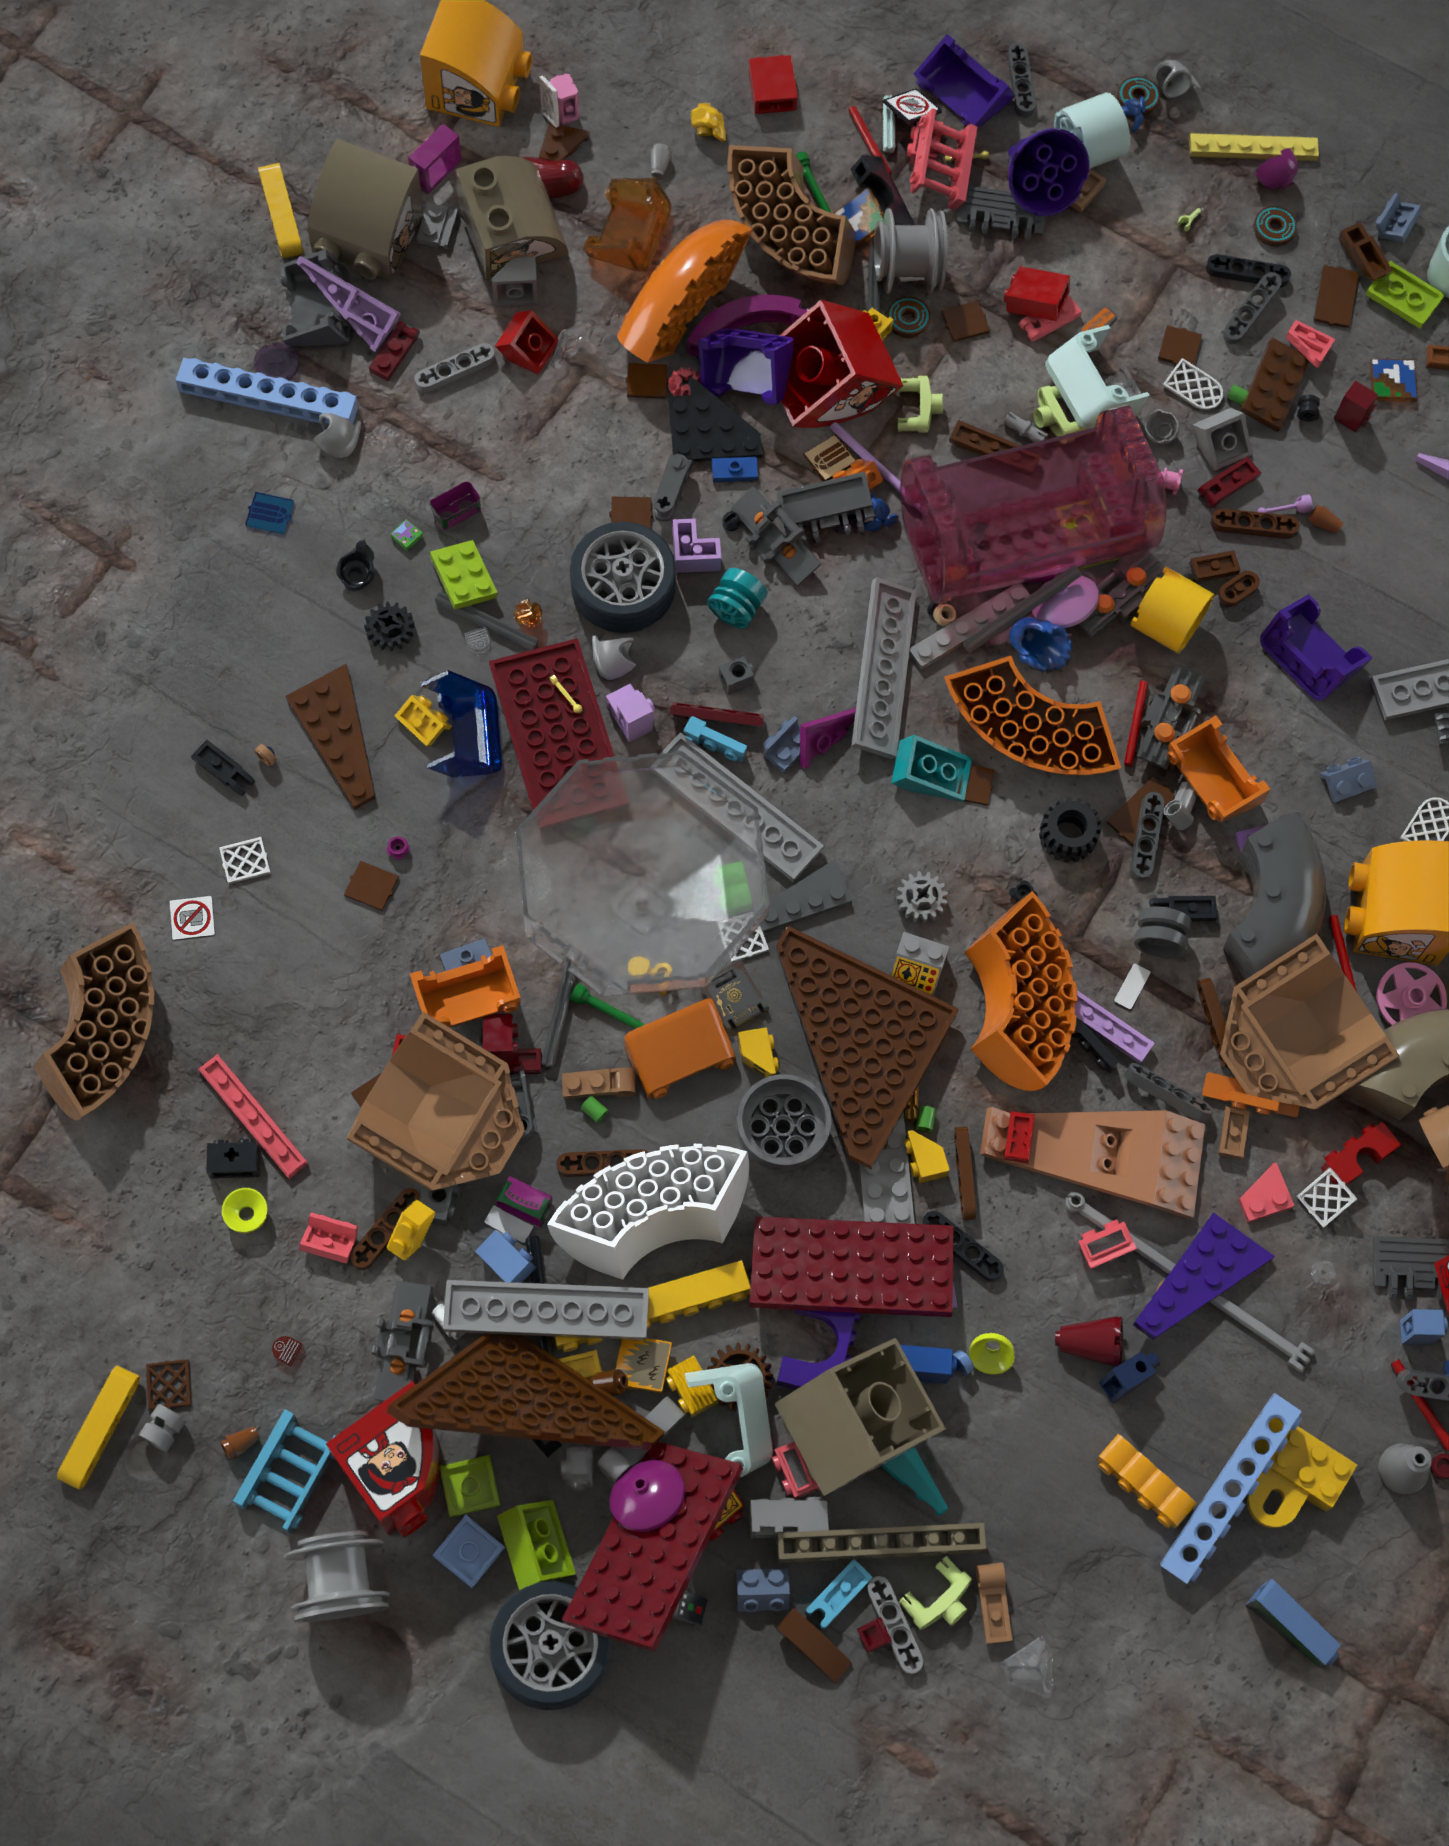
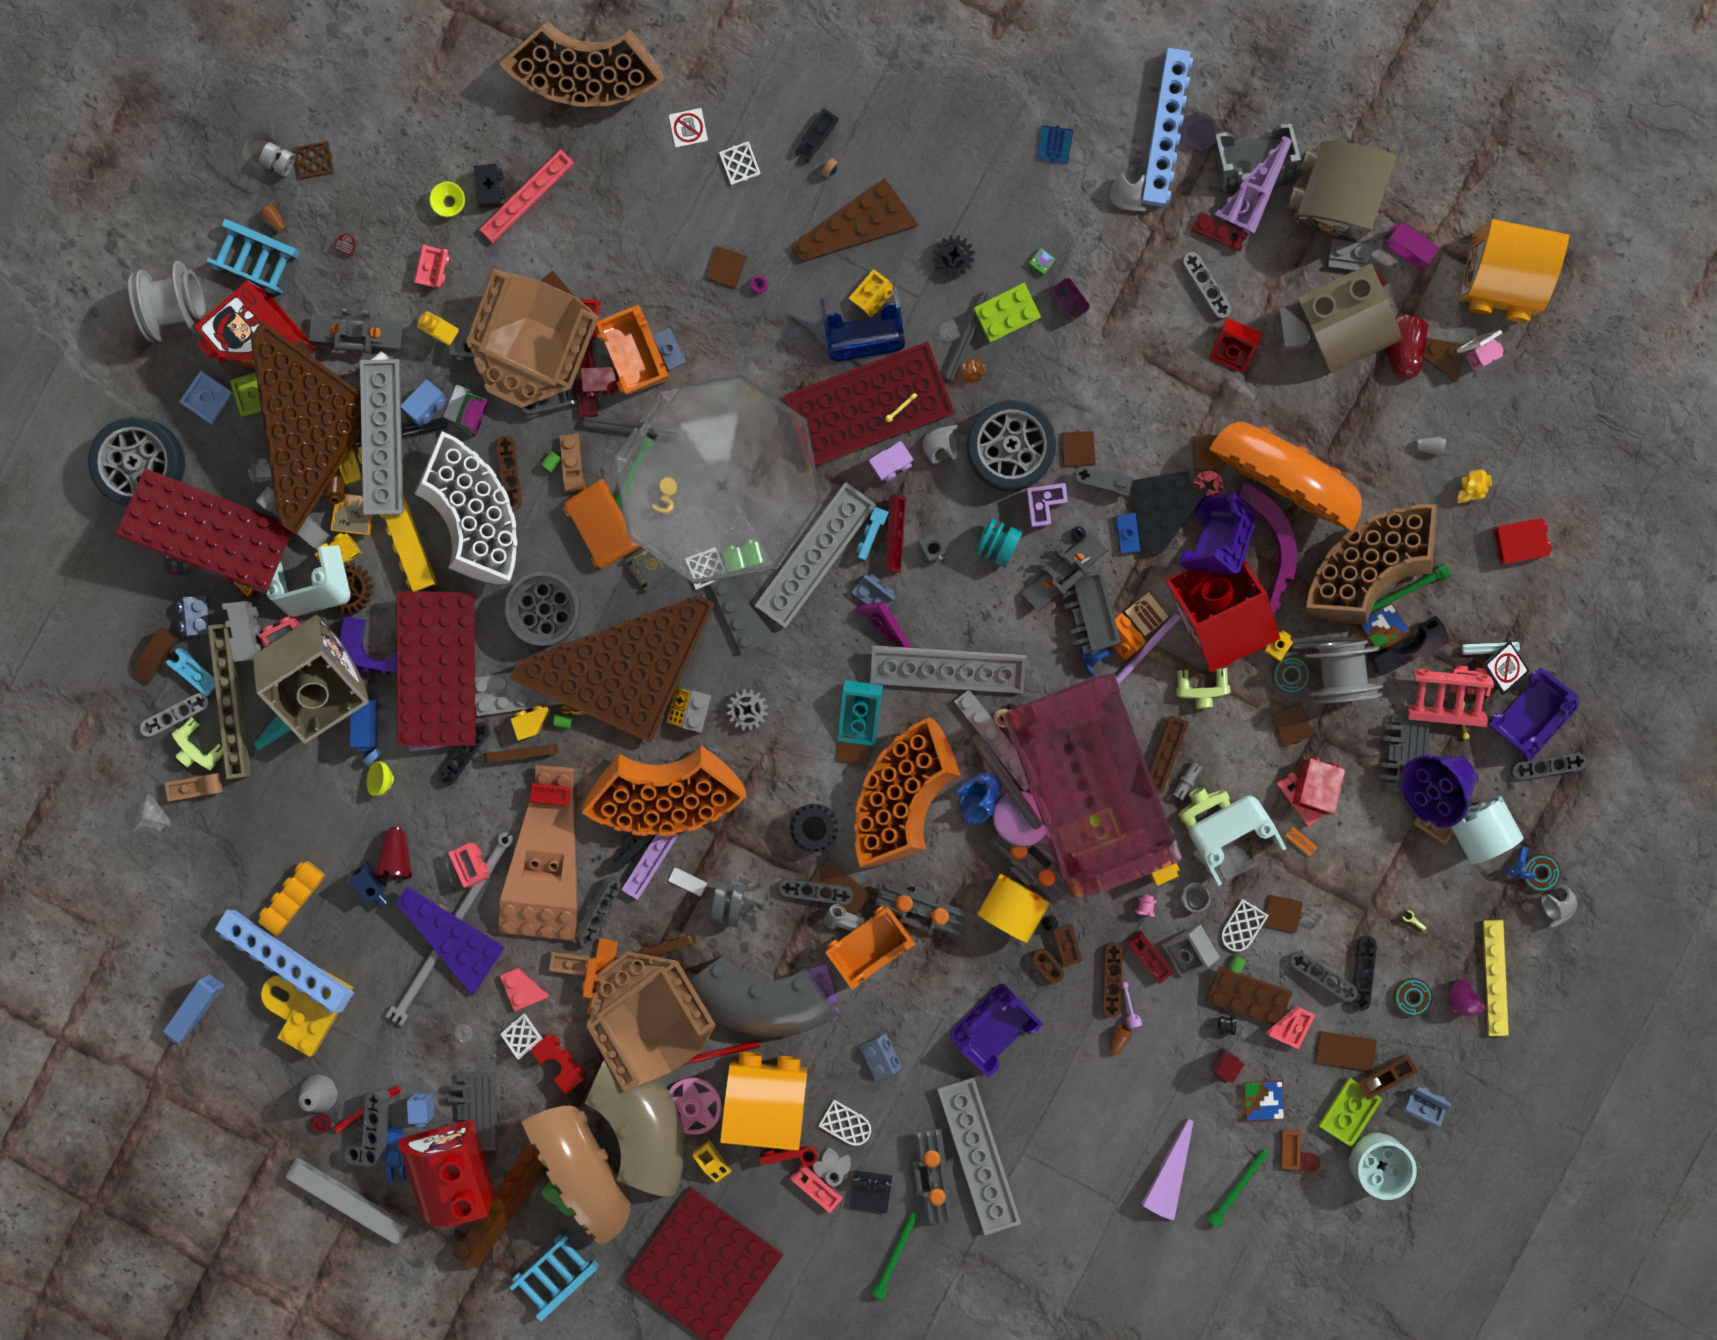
camera: 90 degrees right, 20 degrees up
(98, 1427) = (276, 112): yellow beam -> none
(280, 210) = (1350, 116): yellow beam -> none
(356, 567) = (1003, 223): black hair -> none
(383, 1227) = (445, 308): reddish brown beam -> none
(536, 1543) = (212, 446): lime slope -> none
(633, 225) = (1360, 426): clear orange windscreen -> none
(652, 1504) = (242, 534): magenta dish -> none
(756, 1051) = (606, 584): yellow slope -> none
(866, 134) = (1472, 631): red bar -> none
(874, 1635) = (165, 700): dark red tile -> none
(1023, 886) = (764, 792): black plate -> none
(1135, 725) = (917, 880): red bar -> none
(1196, 907) = (755, 924): black hinge -> none

